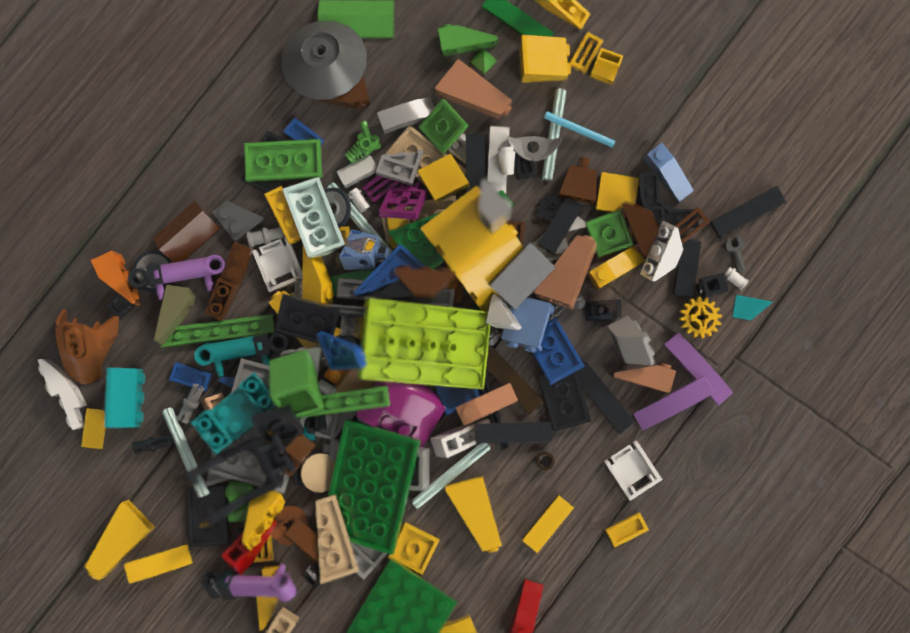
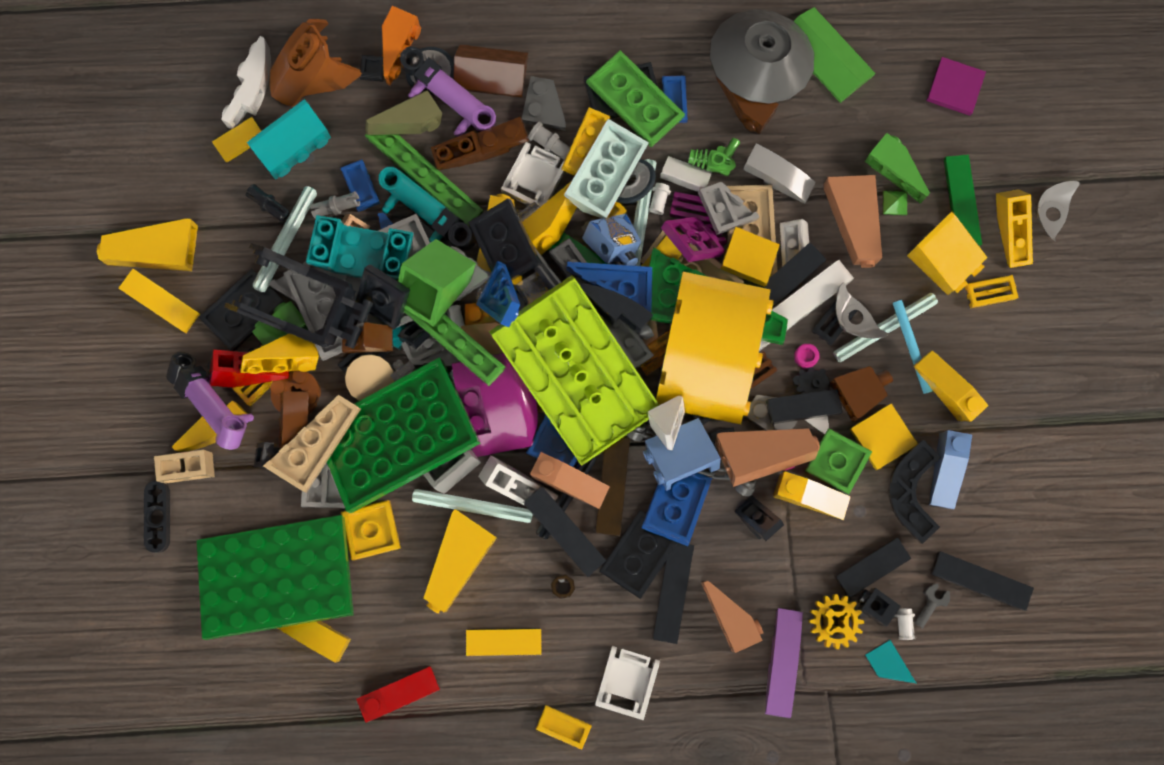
camera: 50 degrees right, 5 degrees down
(424, 281) = (636, 316): reddish brown slope -> none
(443, 126) = (799, 216): bright green tile -> none
(493, 209) = (761, 318): light grey slope -> none
(506, 160) = (820, 300): white cone -> none
(521, 275) = (723, 406): tile -> none
(530, 196) = (806, 356): none -> dark pink tile
(606, 66) = (996, 320): yellow piece -> none
(623, 129) = (951, 387): none -> yellow slope
(631, 342) = (752, 570): light grey slope -> none
(641, 225) = (874, 485): reddish brown slope -> none
(663, 253) = (866, 529): white slope -> none
(674, 402) = (729, 666): medium lavender slope -> none
(694, 231) = (893, 528): reddish brown tile -> none

